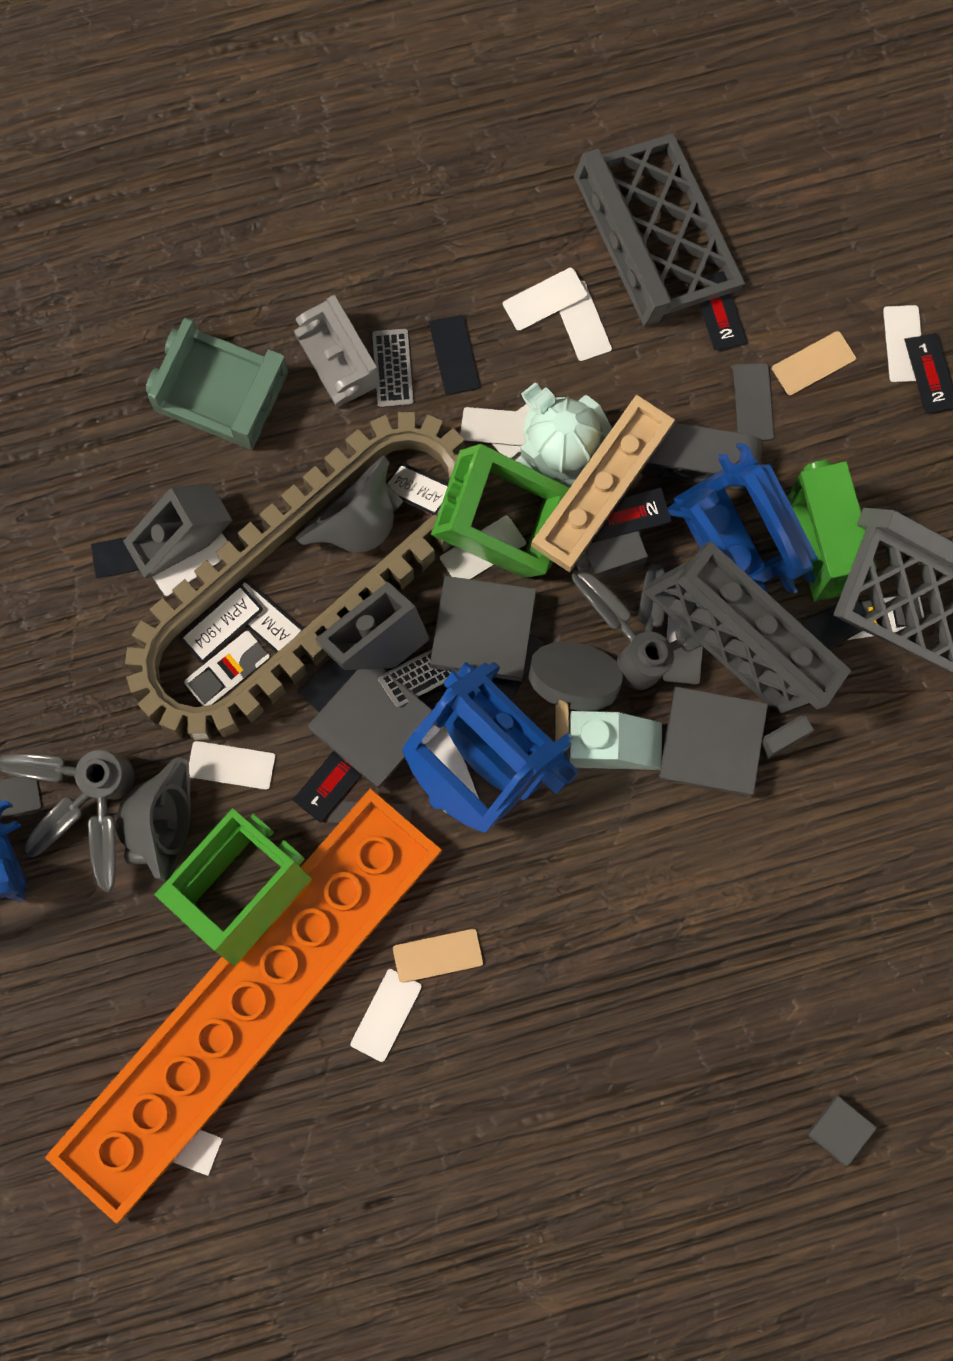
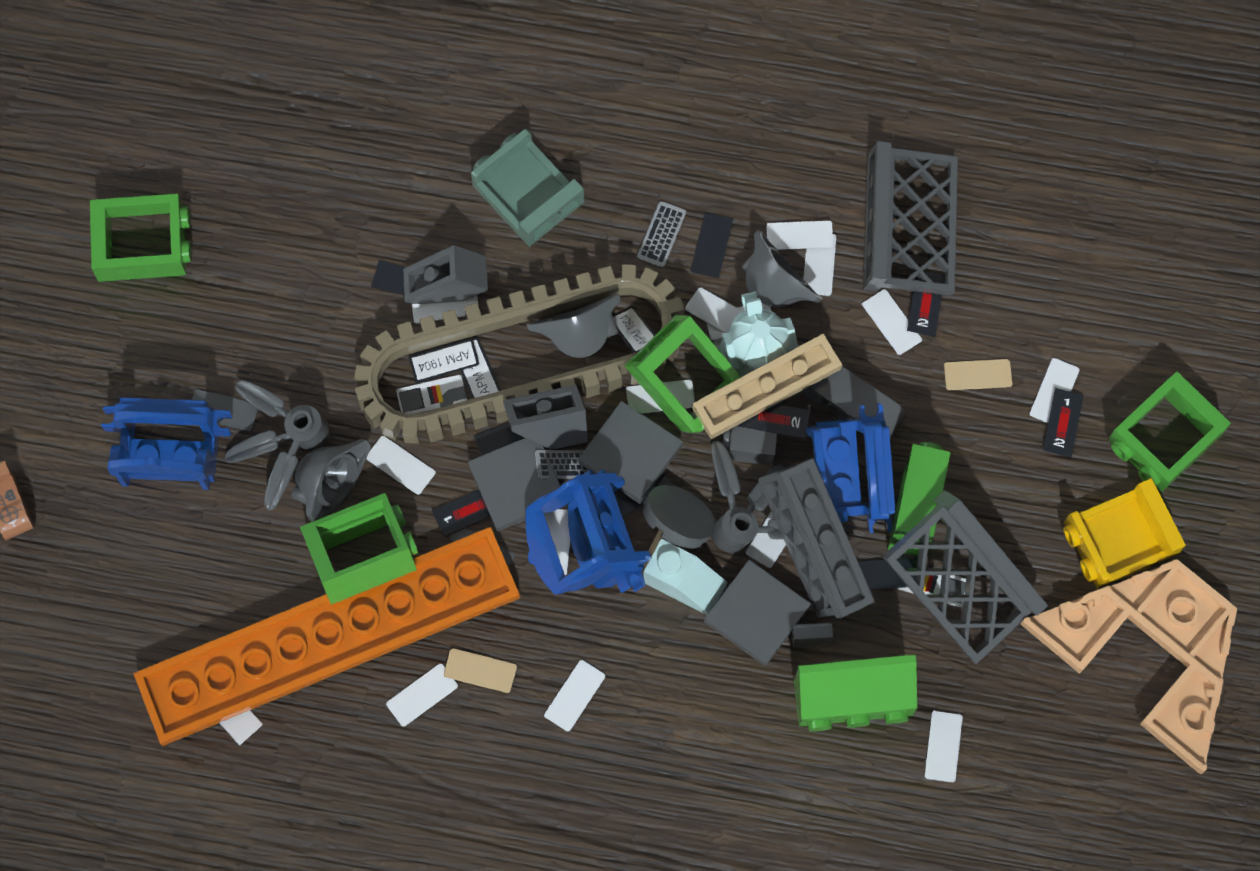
camera: 25 degrees right, 5 degrees down
(336, 352) = (624, 203): light grey hinge -> none
(543, 359) = (774, 277): none -> dark grey hat
(556, 931) = (574, 695): none -> white sticker
(691, 348) = (891, 321): none -> white sticker
(753, 400) = (917, 381): dark grey sticker -> none
(869, 780) = (856, 692): none -> bright green slope

